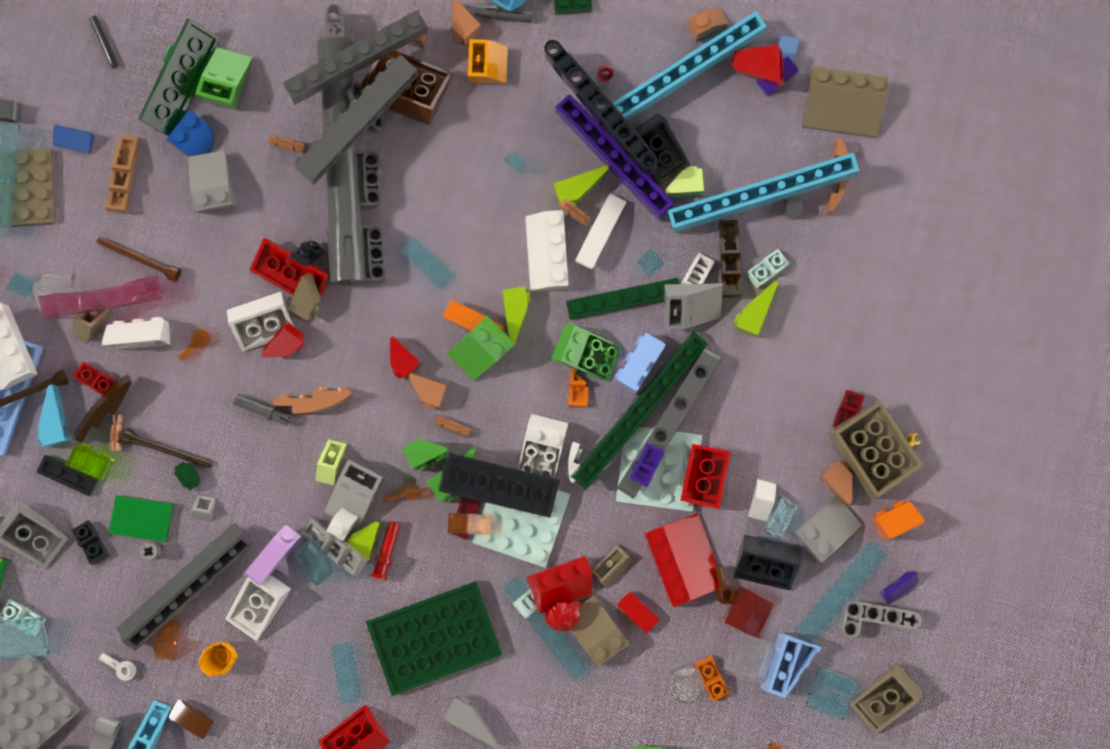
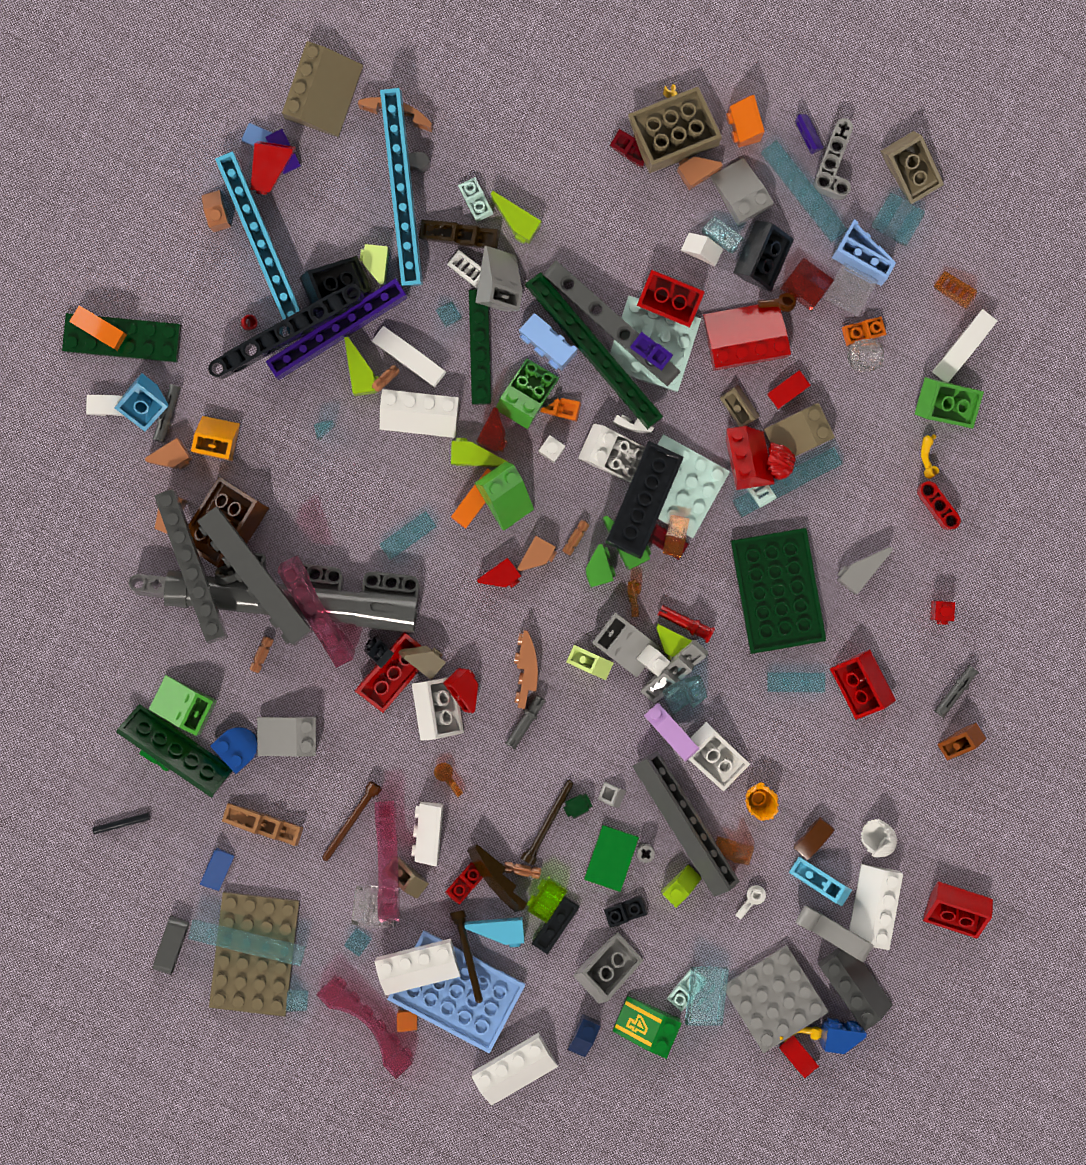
camera: 85 degrees left, 5 degrees up
(122, 593) = (681, 886): none -> lime slope
(353, 164) = (331, 637): none -> clear pink arch
(535, 386) = (551, 449): none -> white brick
(539, 326) = (493, 434): none -> clear red slope

